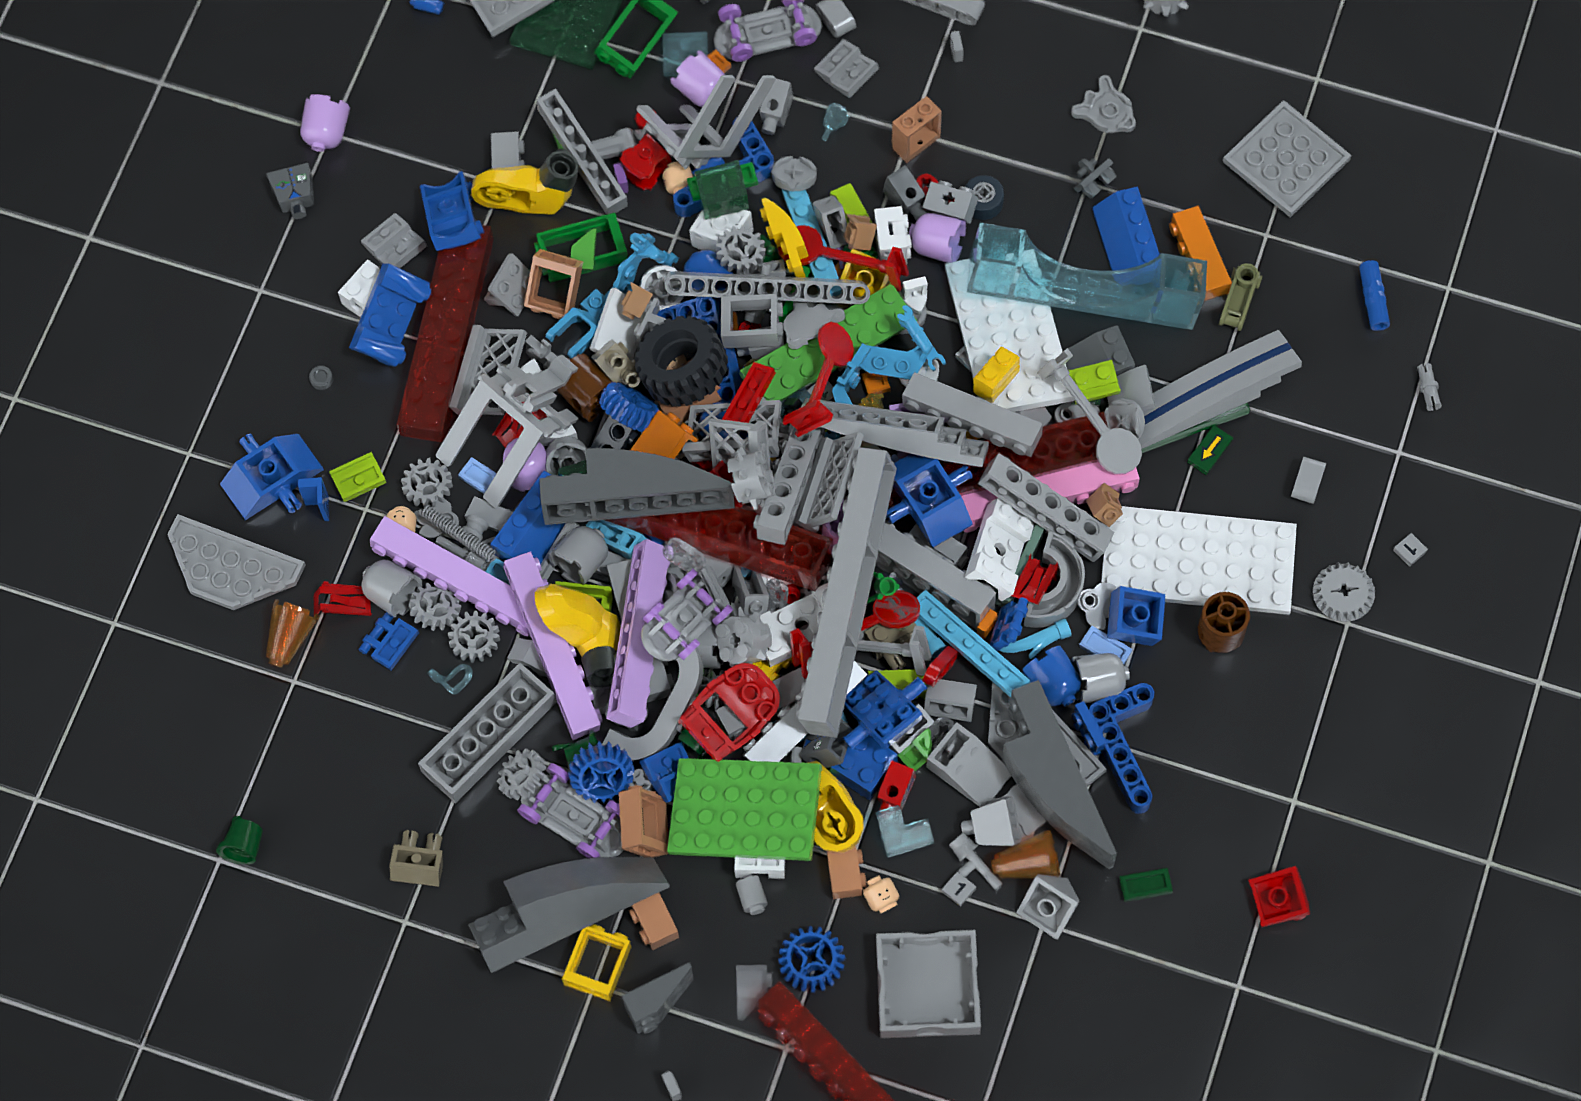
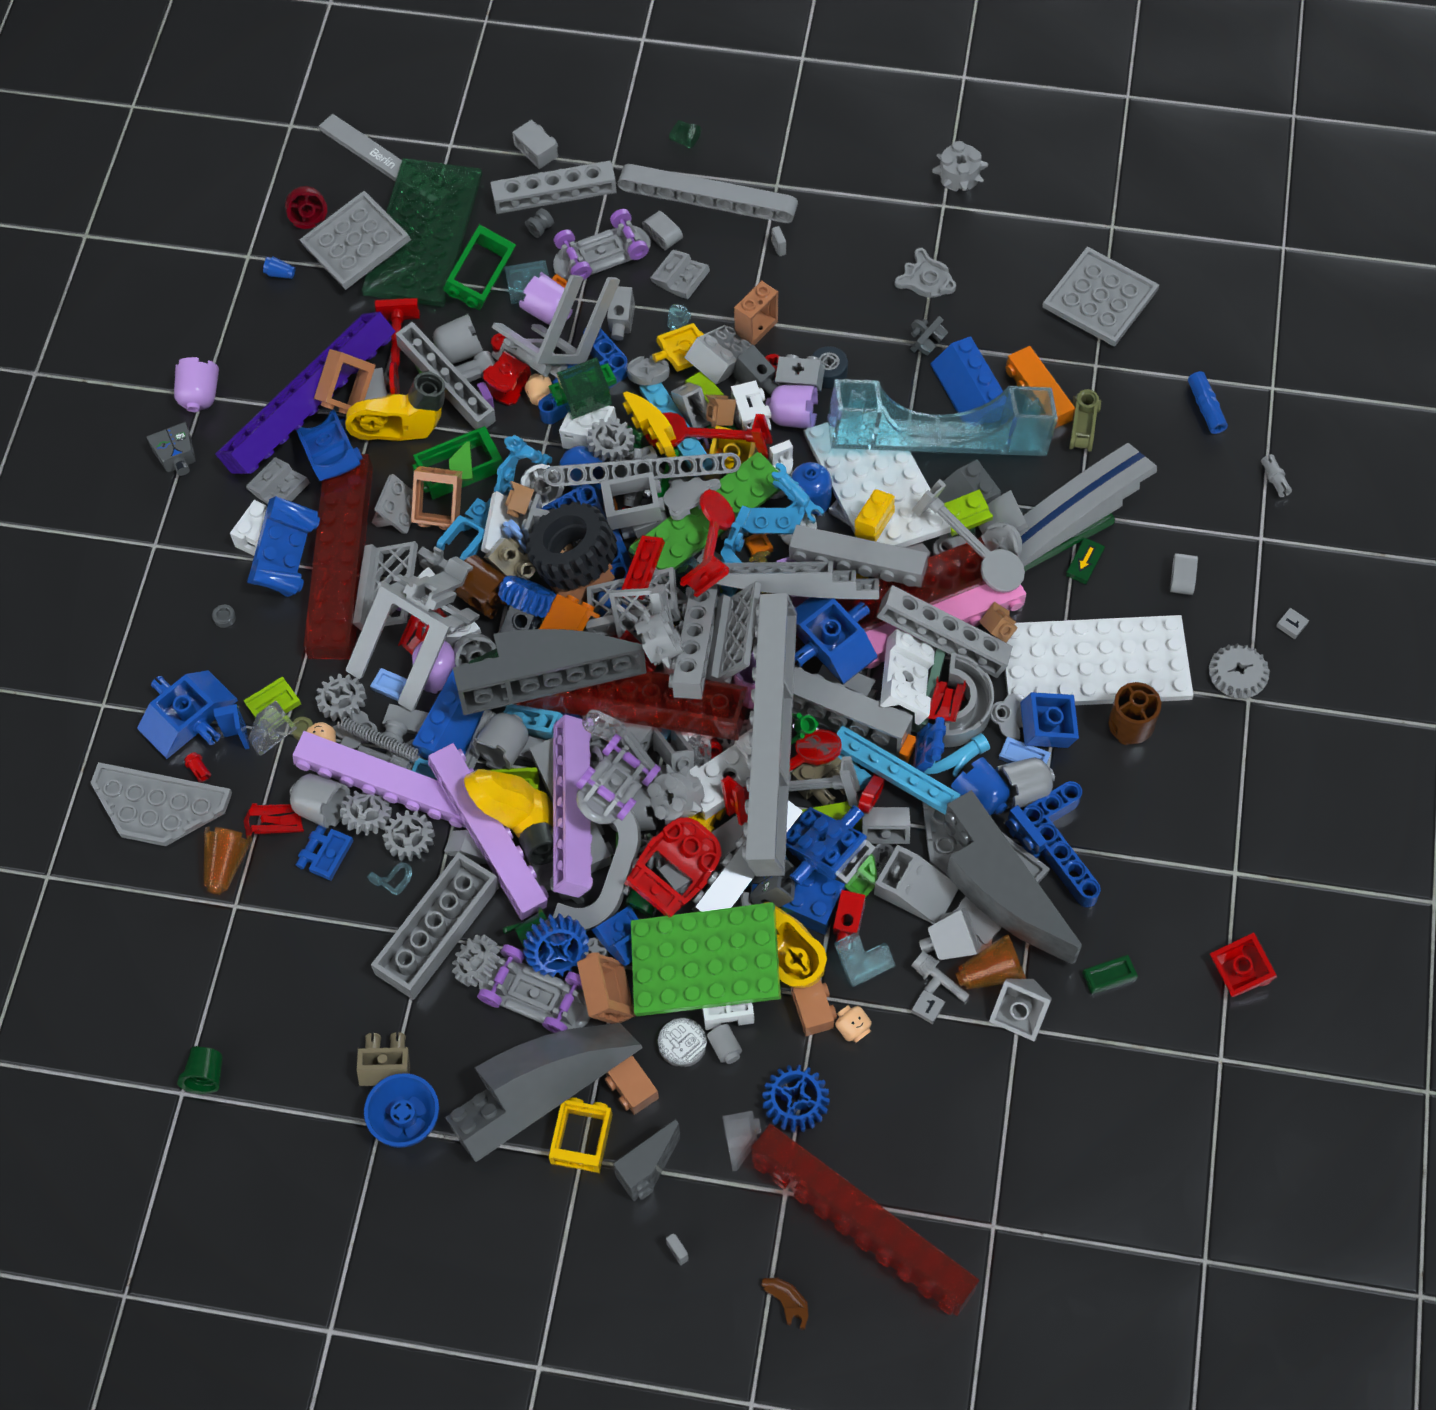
camera: 10 degrees left, 5 degrees down
(274, 532) = (195, 763): none -> red pin
(352, 504) = (270, 728): none -> clear slope
(382, 506) = (302, 724): none -> olive tile
(426, 899) = (401, 1097): none -> blue piece
(436, 149) = (297, 399): none -> dark purple brick
(462, 138) = (330, 375): none -> nougat window
(542, 69) = (396, 311): none -> red piece
(599, 112) = (456, 340): none -> light grey cylinder
(625, 333) = (512, 531): none -> light blue plate
(710, 886) = (682, 1042): none -> tile
(837, 153) = (676, 345): none -> yellow plate
(868, 166) = (717, 353): none -> light grey slope
(928, 984) = (916, 1105): light grey tile -> none
(942, 328) = (816, 483): none -> blue cylinder

